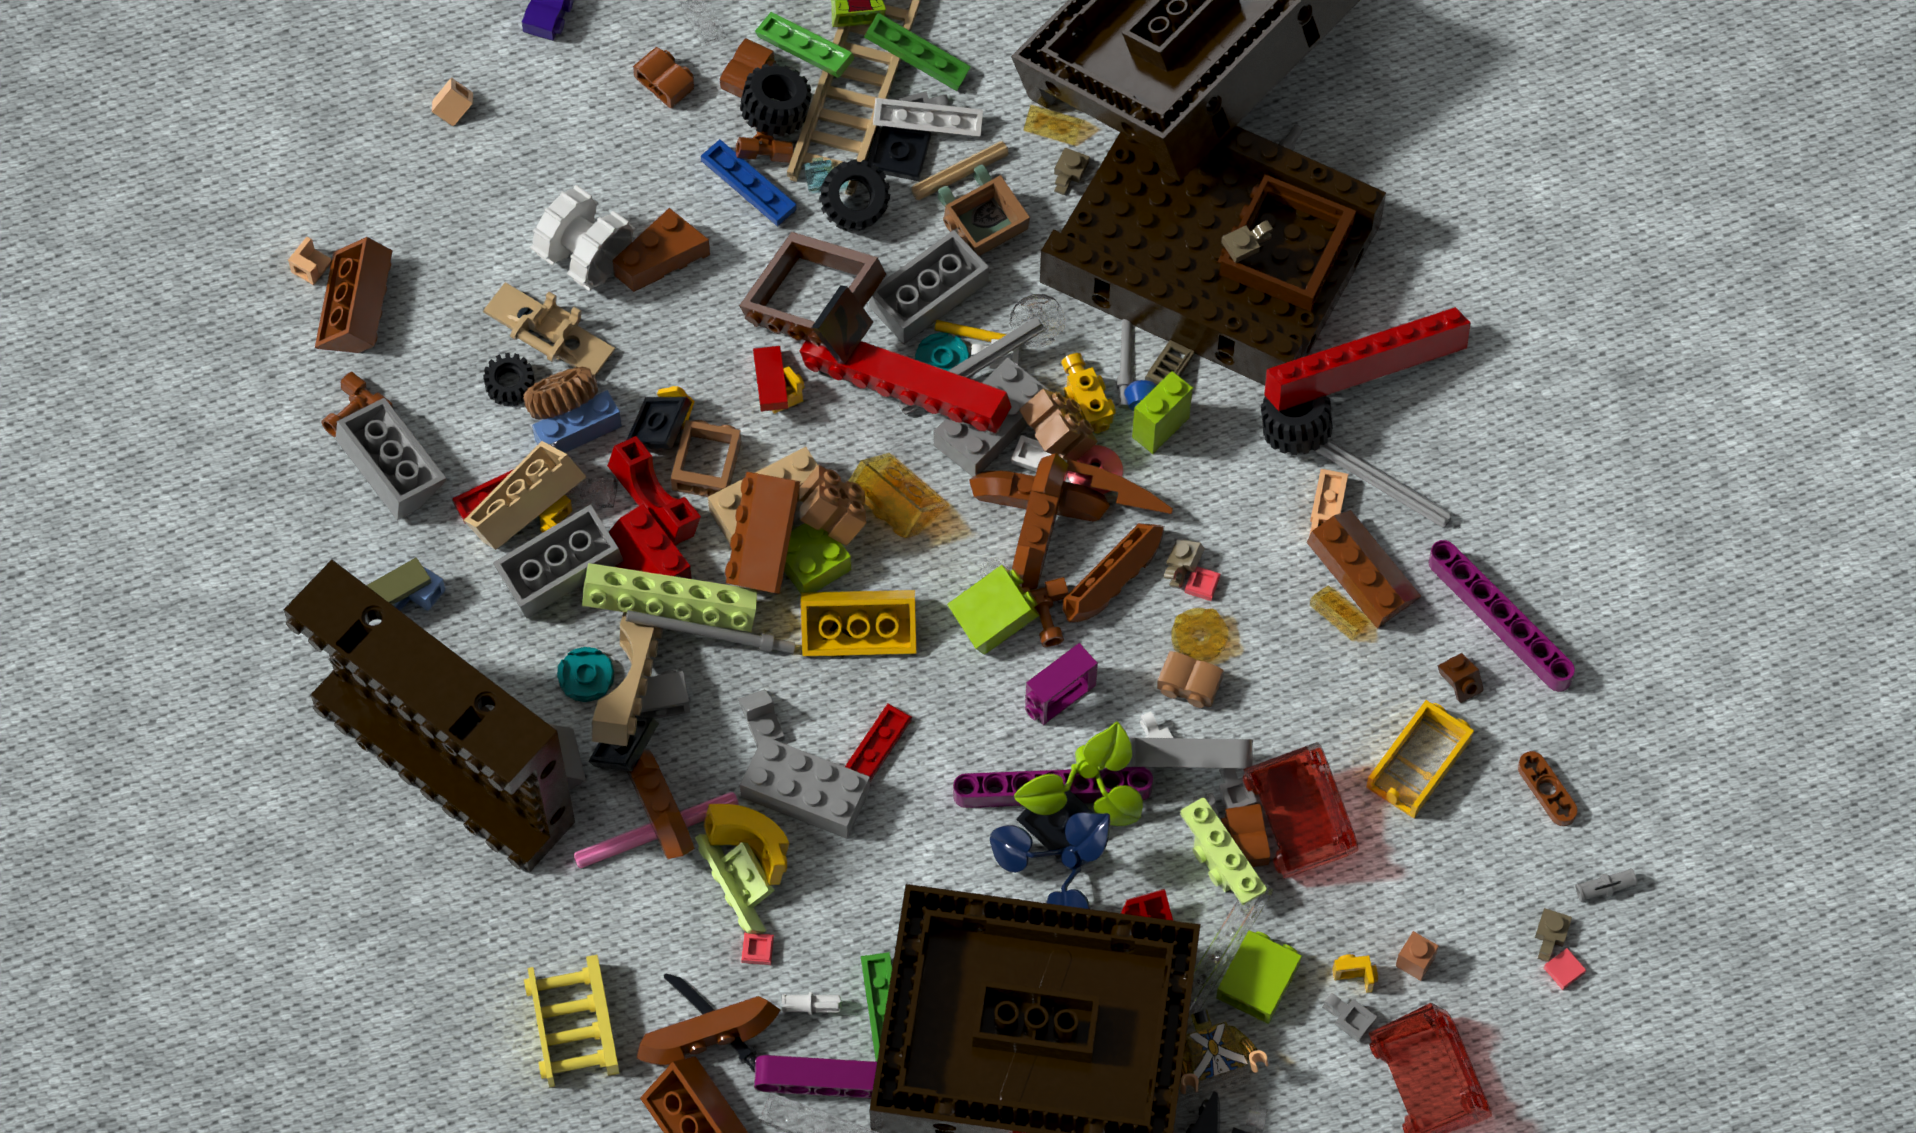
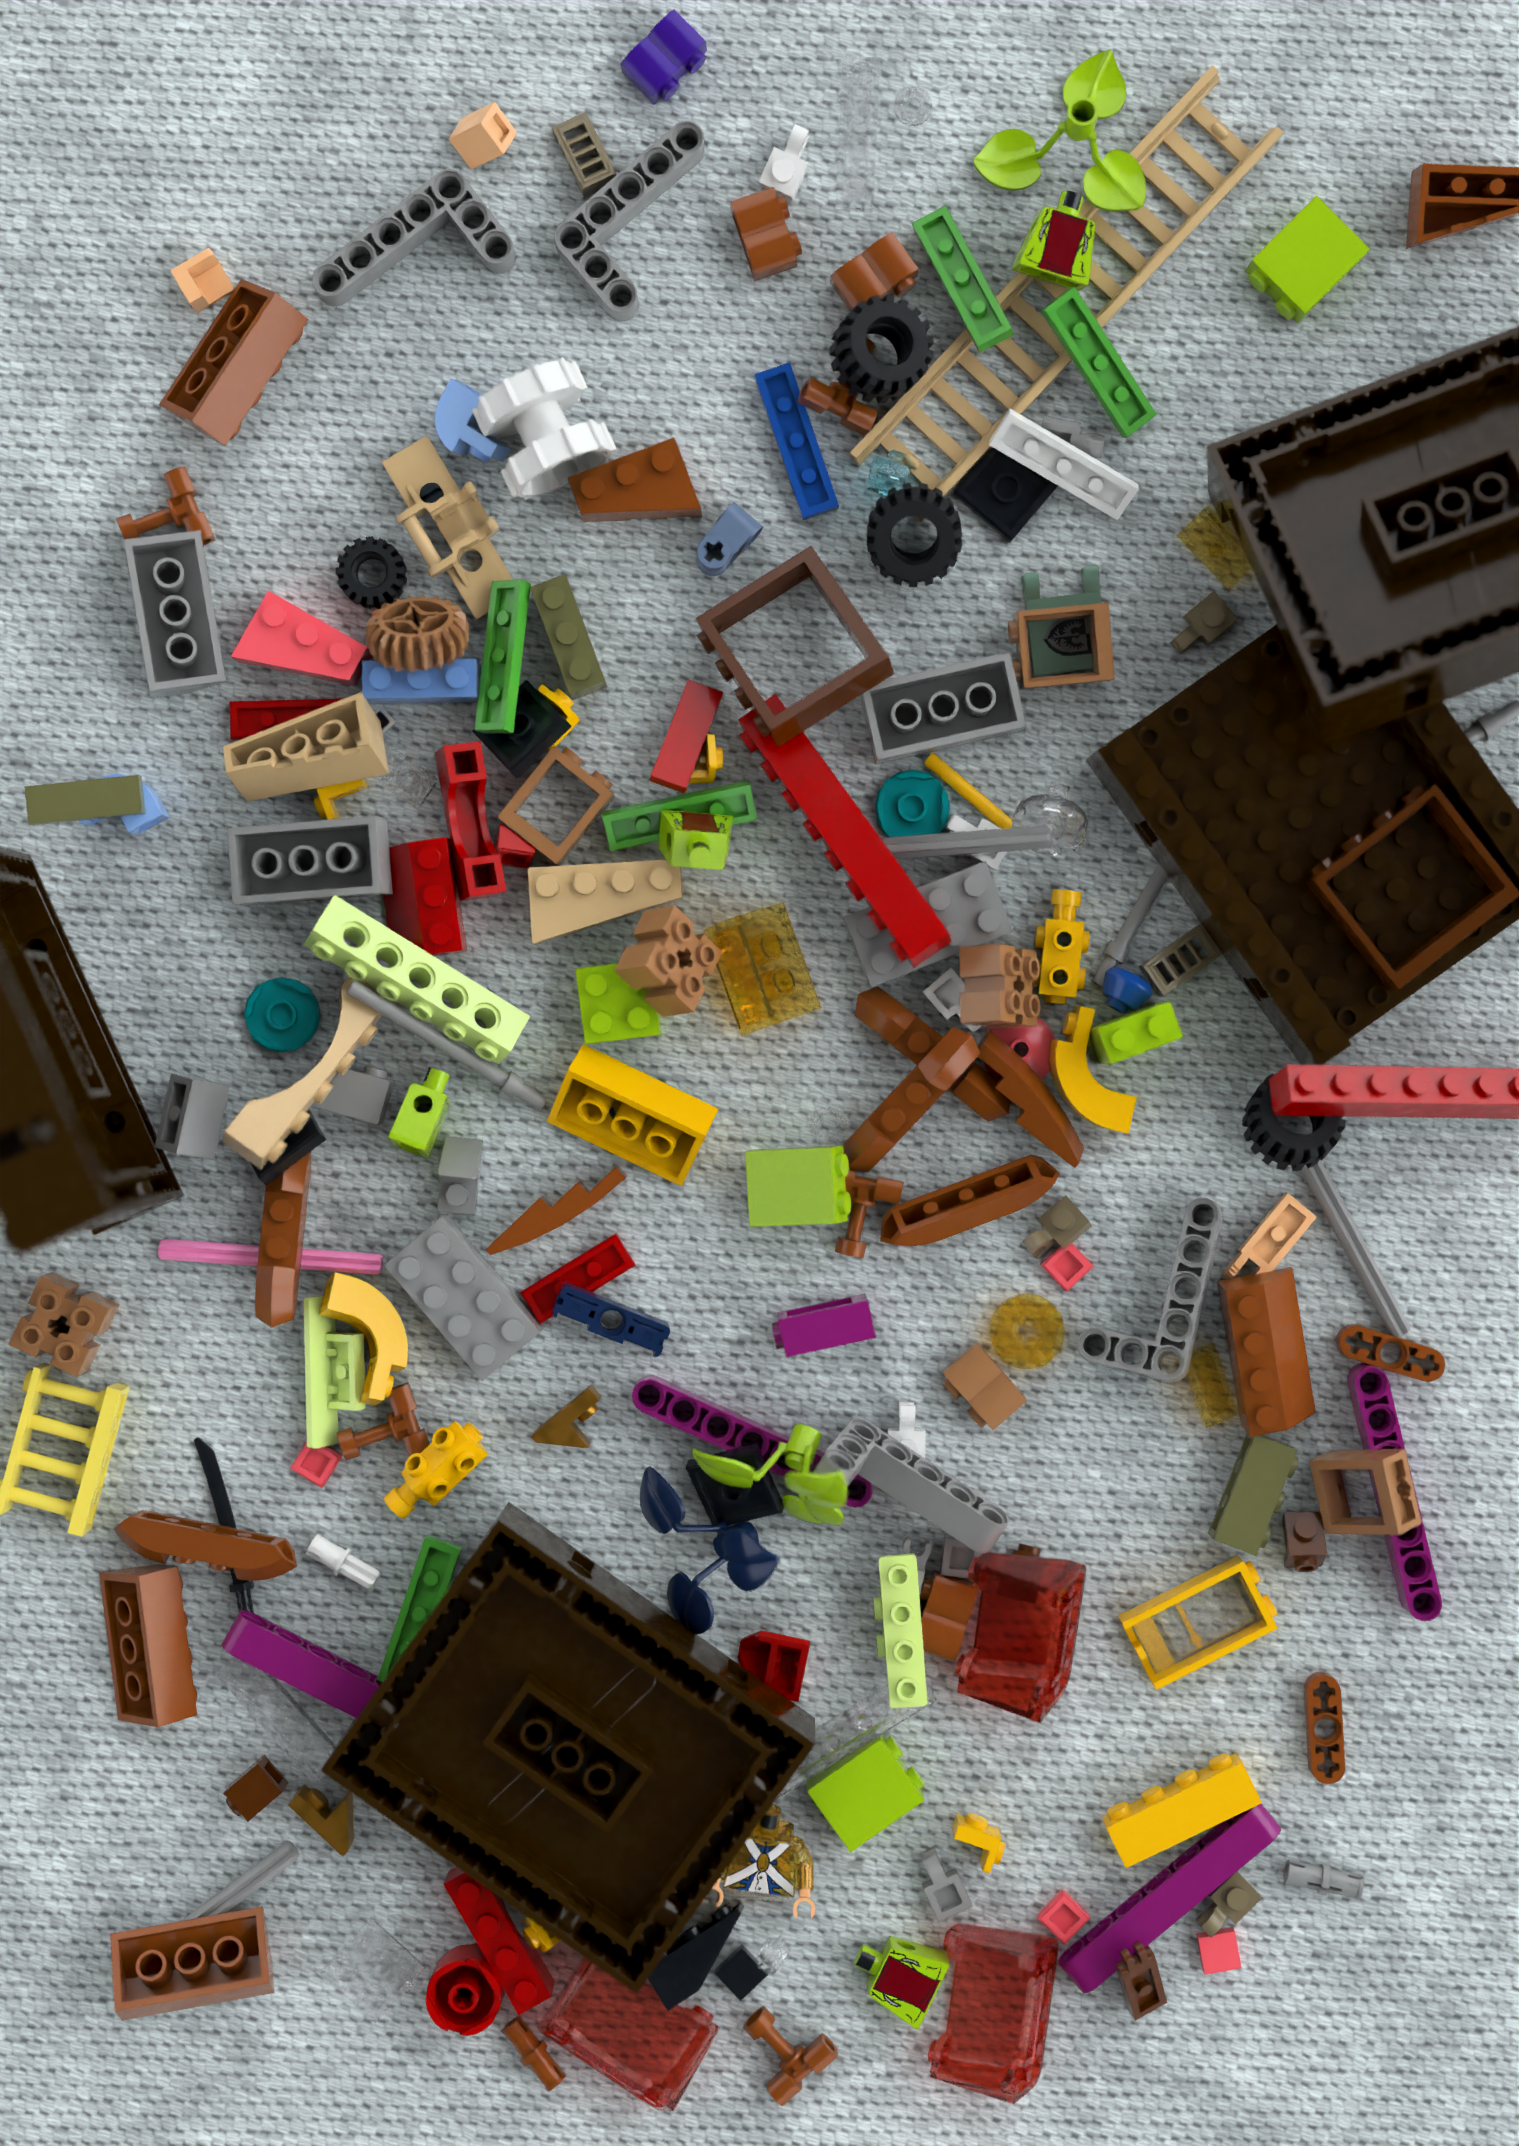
camera: 30 degrees right, 25 degrees up
(434, 174) = (413, 234): none -> light grey beam
(485, 439) = (299, 643): none -> coral wedge
(524, 263) = (458, 426): none -> light blue brick
(534, 100) = (594, 182): none -> dark tan slope
(549, 927) = (85, 1314): none -> medium nougat brick
(564, 104) = (622, 212): none -> light grey beam
(624, 383) = (502, 656): none -> bright green plate
(657, 35) = (785, 168): none -> white plate
(660, 355) = (568, 637): none -> olive brick
(695, 494) = (513, 848): none -> red slope
(716, 680) = (416, 1130): none -> lime torso
(734, 258) = (731, 536): none -> sand blue piece
(762, 532) = (565, 958): dark orange slope -> none
(791, 429) = (641, 822): none -> bright green plate
(803, 895) = (401, 1425): none -> dark orange bar
(809, 429) = (696, 839): none -> lime torso
(834, 712) = (544, 1217): none -> dark orange slope
(842, 324) = (798, 728): tile -> none
(845, 904) = (437, 1468): none -> yellow brick
(893, 755) = (589, 1307): none -> dark blue piece
(918, 838) = (561, 1426): none -> pearl gold slope
(959, 170) = (1067, 555): tan axle -> none
(1145, 468) = (1076, 1083): none -> yellow arch
(1245, 243) = (1355, 871): dark tan plate -> none
(1290, 564) = (1173, 1307): none -> light grey beam
(1356, 1088) = (903, 1976): none -> torso
(1409, 660) = (1253, 1493): none -> olive brick
(1417, 955) = (1057, 1859): nougat brick -> none
(1446, 997) = (1063, 1916): none -> coral tile
(1453, 526) = (1413, 1370): none -> dark orange beam
(1481, 884) = (1180, 1809): none -> yellow brick
(1495, 598) = (1389, 1470): none -> medium nougat window
(1507, 946) = (1170, 1896): none -> magenta beam
(1518, 1001) = (1140, 1980): none -> reddish brown hinge

